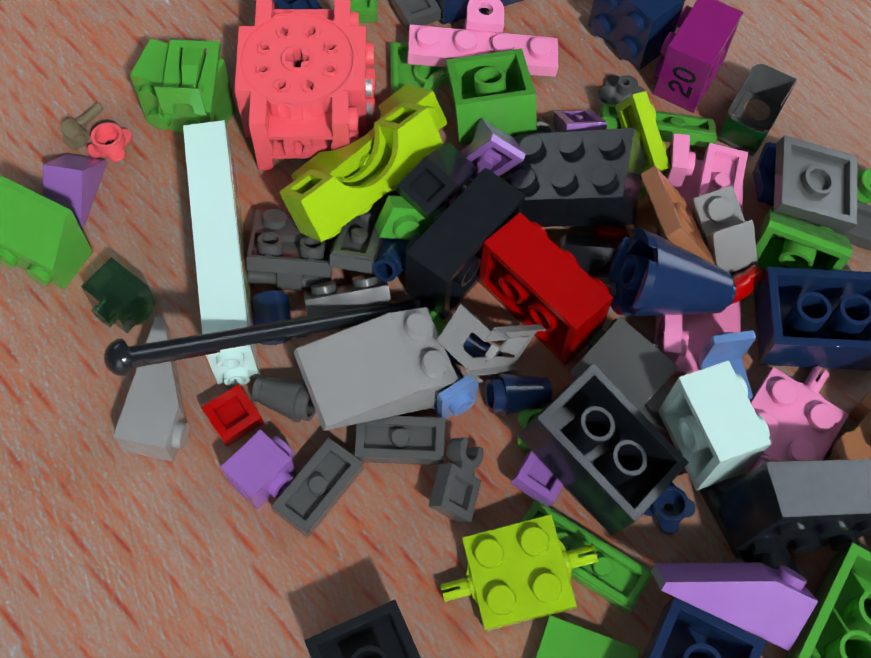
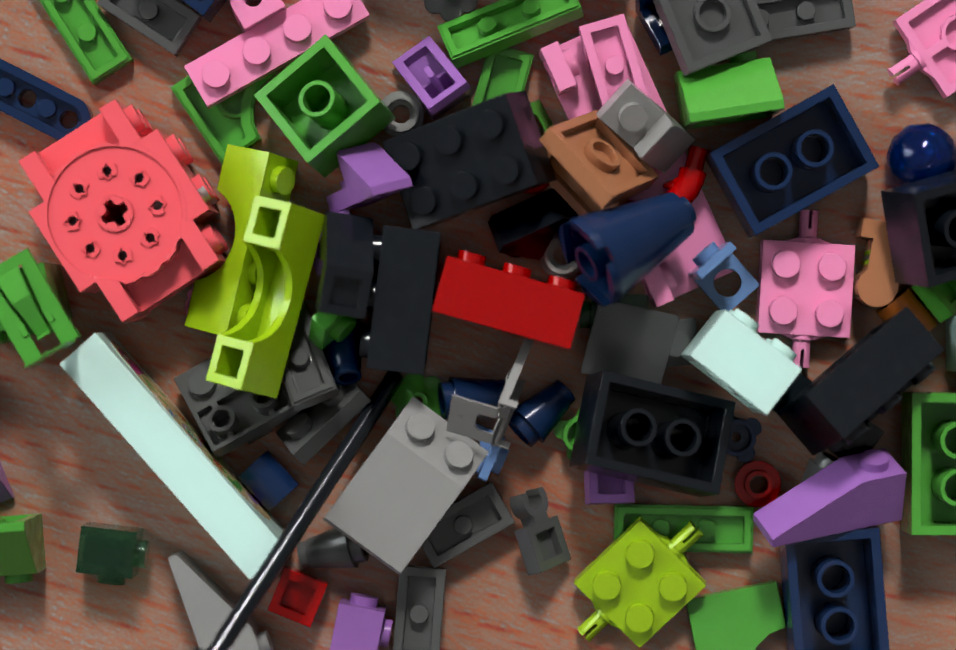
camera: 30 degrees left, 25 degrees up
(640, 114) = (519, 72): lime plate -> none
(665, 539) = (744, 476): none -> red plate

